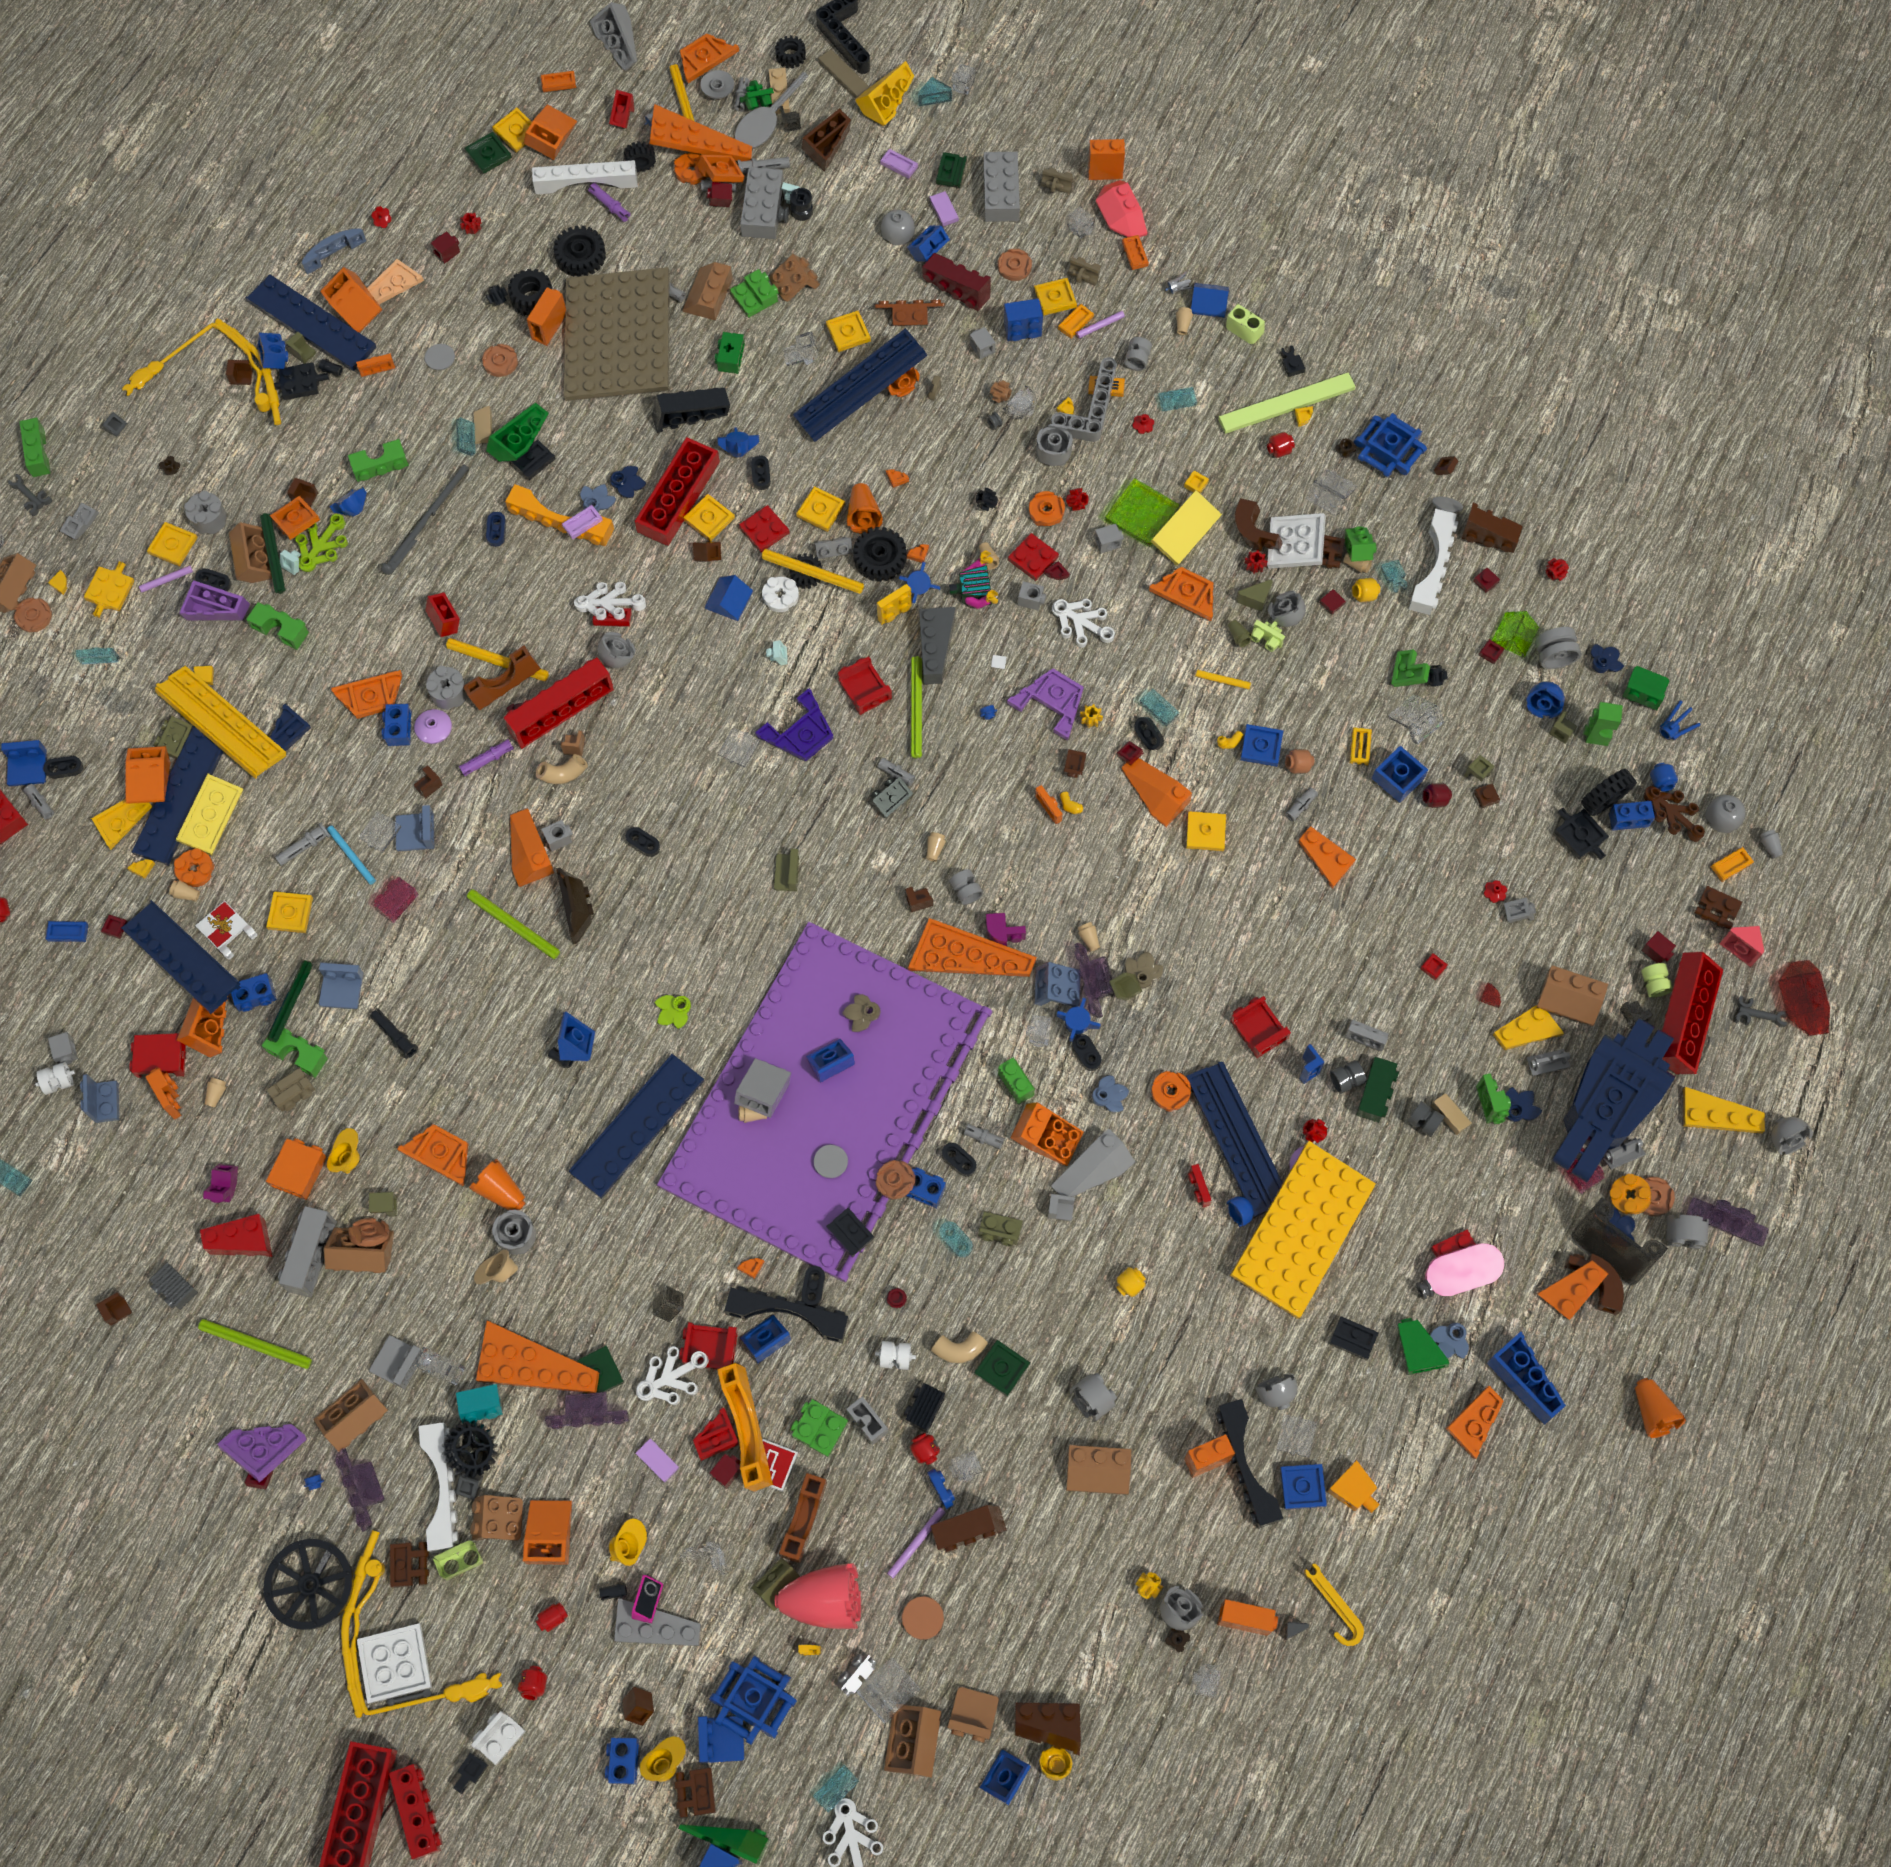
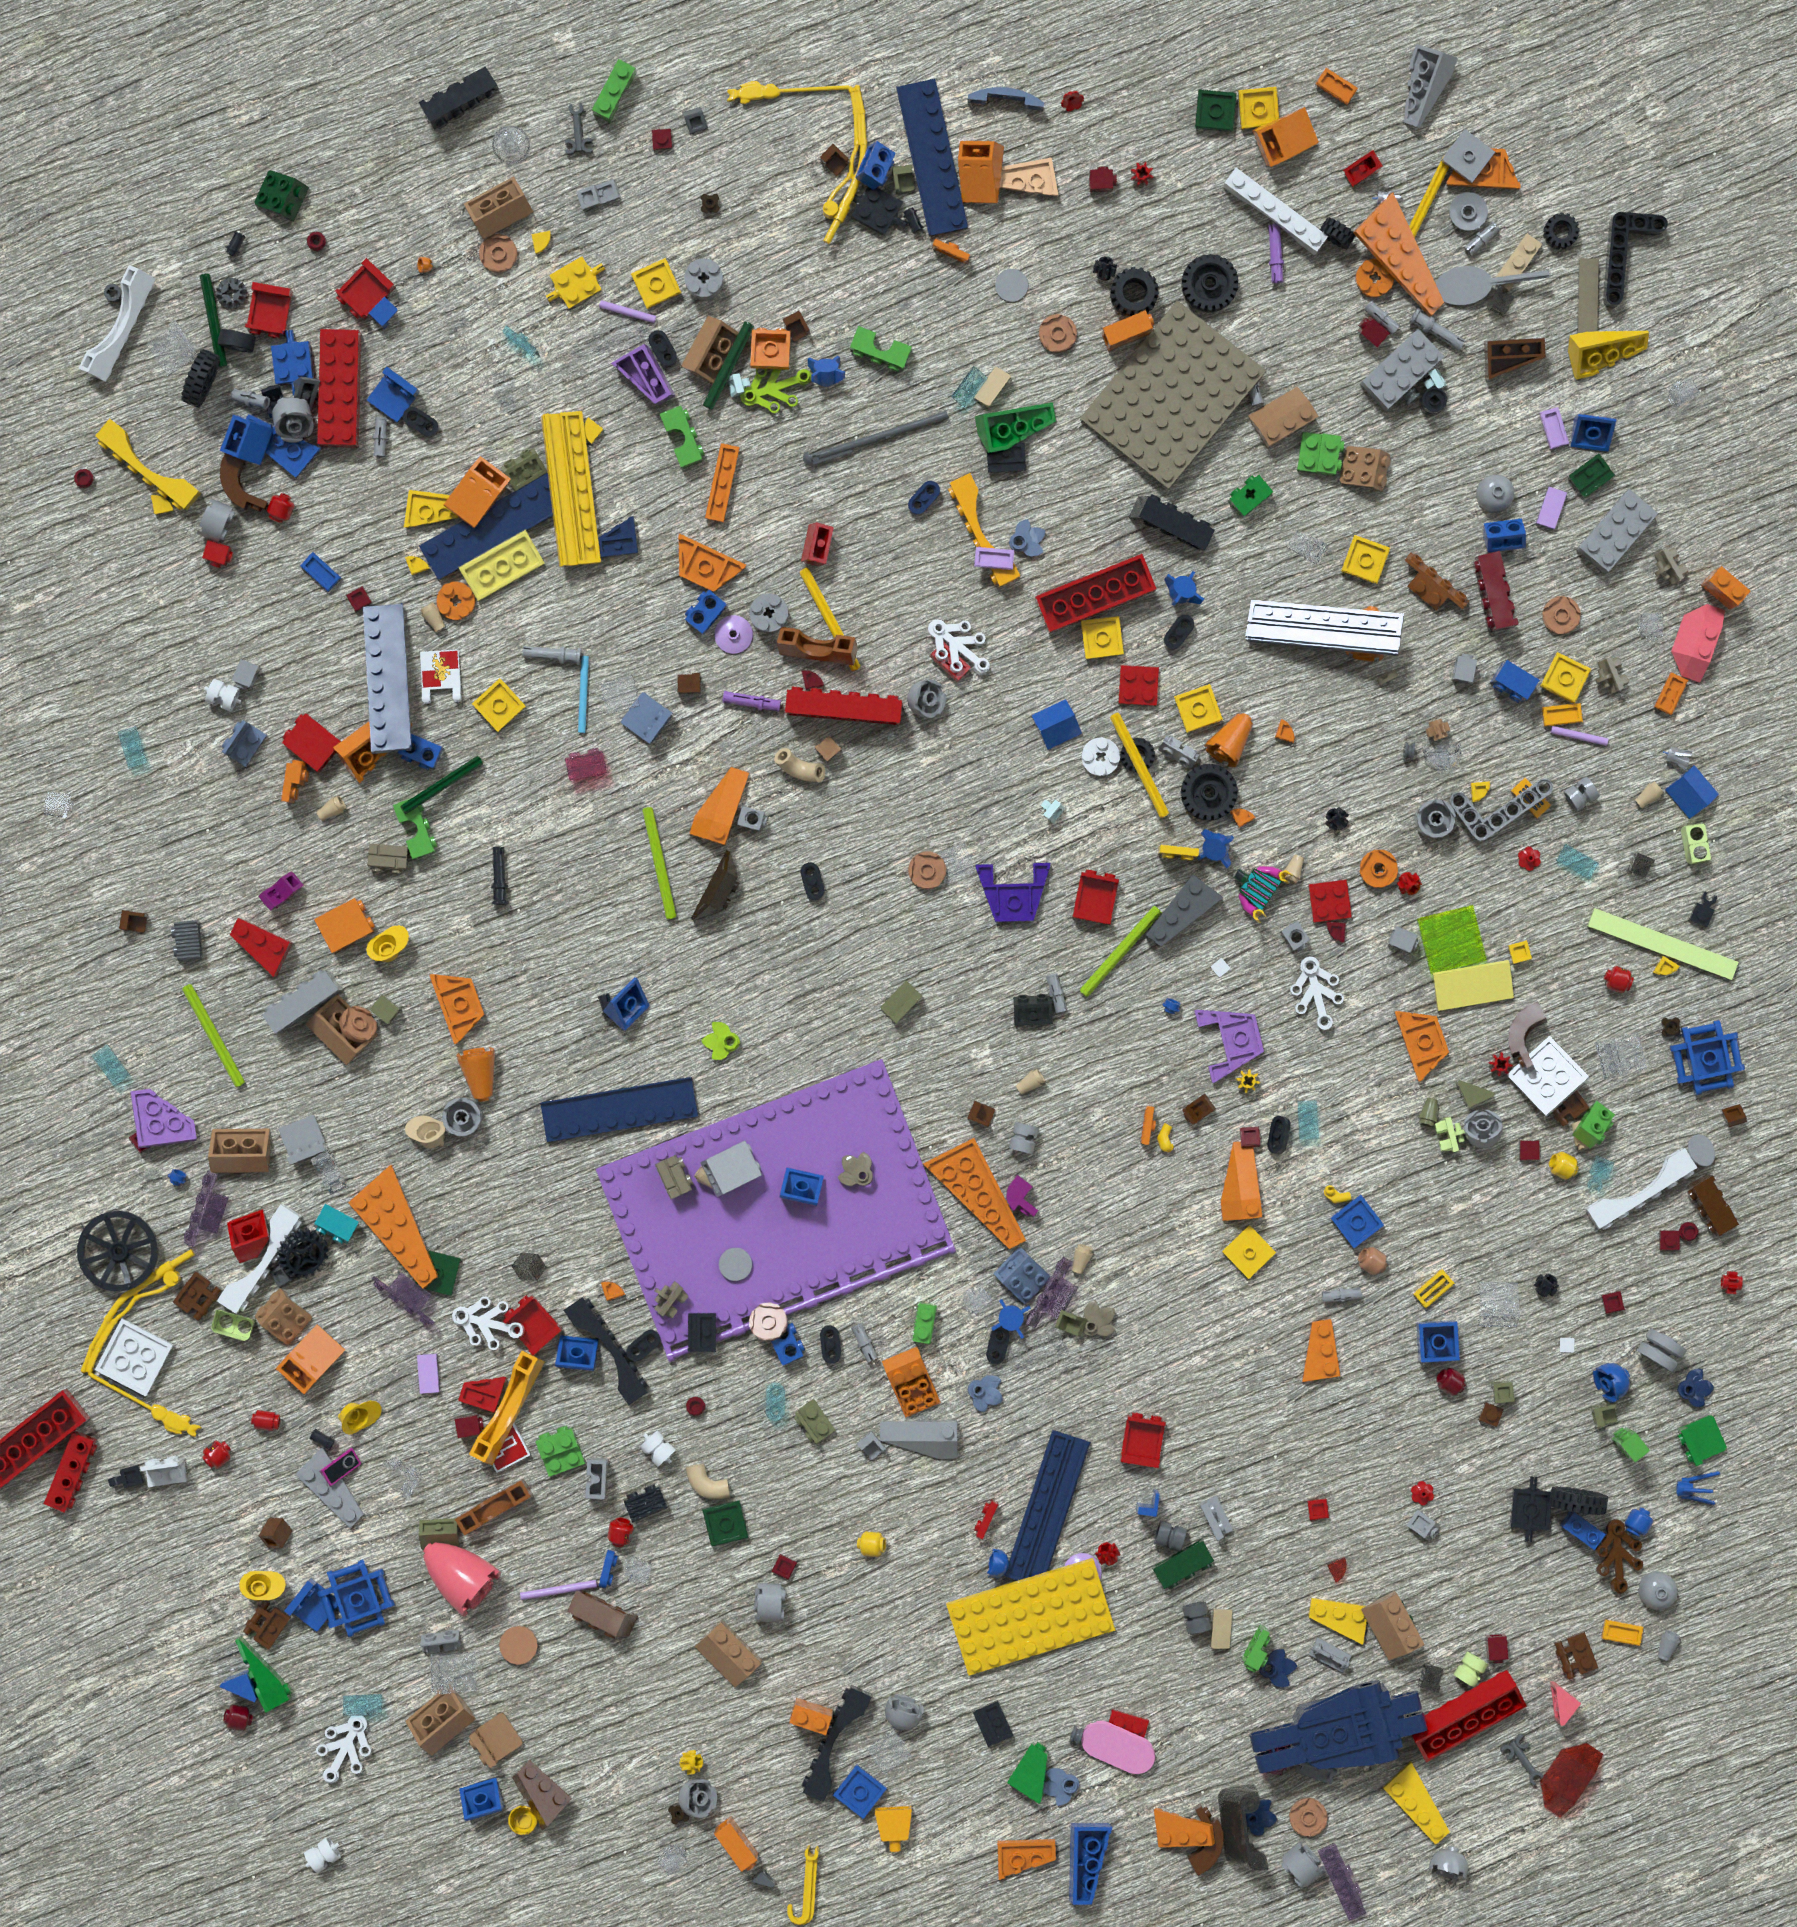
camera: 45 degrees right, 20 degrees up
(98, 454) = (661, 139): none -> dark red plate
(184, 1439) = (110, 1065): none -> clear light blue plate
(335, 632) = (722, 482): none -> orange plate
(340, 985) = (488, 804): sand blue bracket -> none
(413, 1476) = (248, 1235): none -> red slope
(629, 483) = (1067, 547): dark blue plate -> none
(629, 1761) = (238, 1564): blue brick -> none
(685, 52) = (1468, 156): none -> light grey plate
(707, 551) = (1074, 667): reddish brown panel -> none
(720, 168) = (1393, 308): orange plate -> none
(723, 766) = (927, 870): none -> nougat tile
(723, 1134) = (674, 1177): none -> dark tan brick
(757, 94) = (1492, 253): green hips -> none
(798, 1228) = (666, 1298): none -> dark tan hips
(809, 1650) = (420, 1596): yellow tile -> none
(926, 142) = (1592, 432): none -> blue slope
(934, 93) = (1647, 384): clear light blue slope -> none
(1079, 1362) = (784, 1566): none -> dark red tile
(1171, 1080) = (1039, 1438): orange plate -> none
(1220, 365) = (1640, 865): none -> clear smoke panel
(1223, 679) = (1381, 1140): yellow bar -> none
(1407, 672) = (1525, 1262): bright green plate -> none
(1490, 706) = (1566, 1344): none -> white sticker
(1494, 563) = (1688, 1231): none -> dark red plate
(1516, 632) = (1646, 1304): clear neon green slope -> none
(1629, 1183) = (1282, 1809): light orange plate -> none

